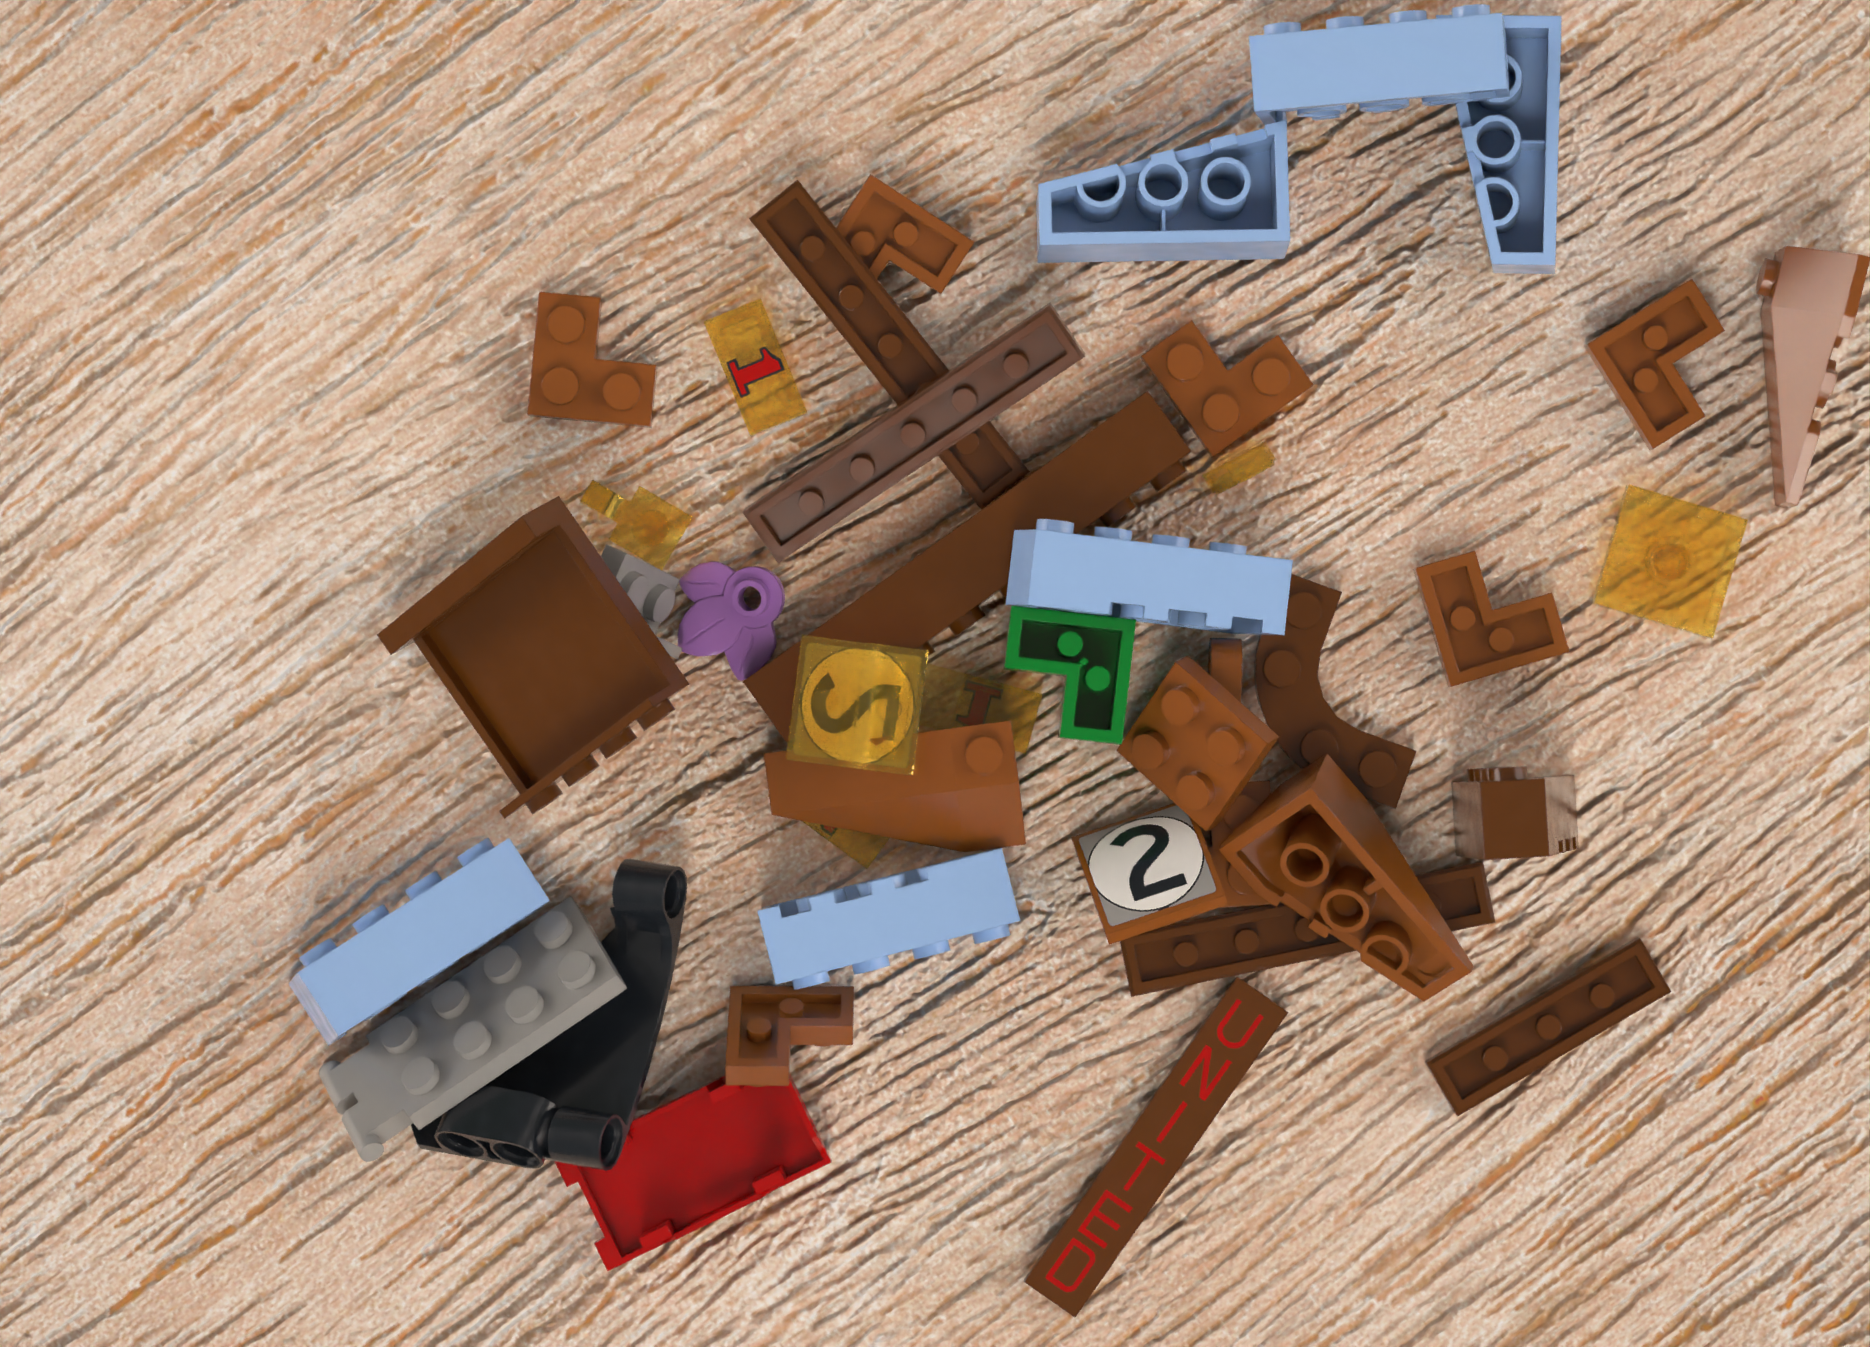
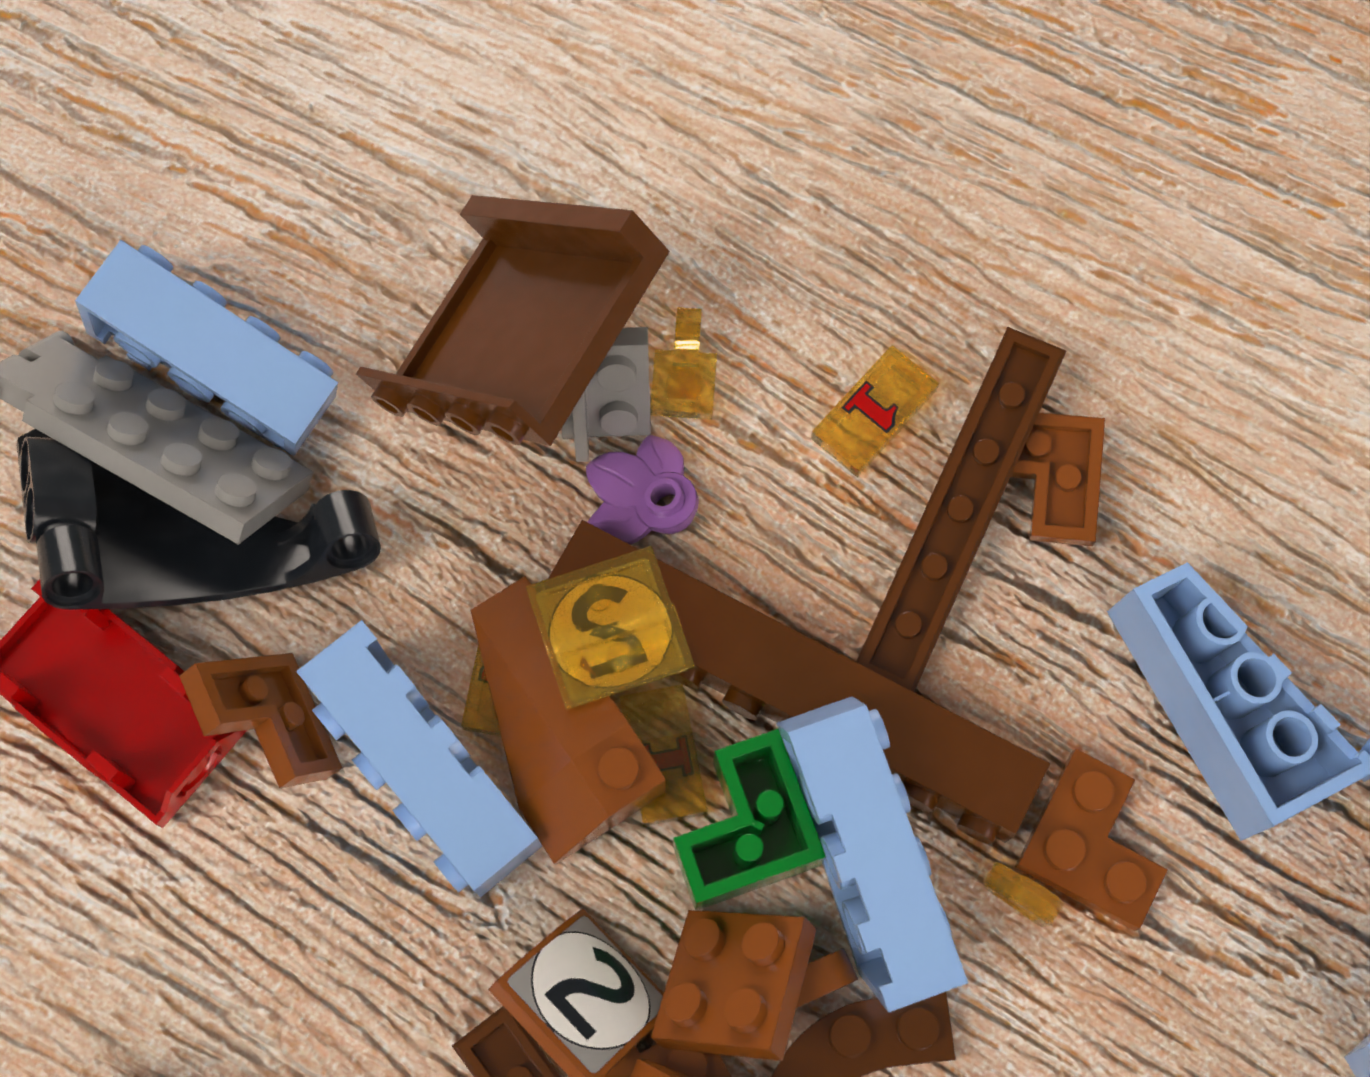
camera: 65 degrees right, 15 degrees down
(570, 379) = (781, 266): dark orange plate -> none
(914, 432) = (898, 570): reddish brown tile -> none

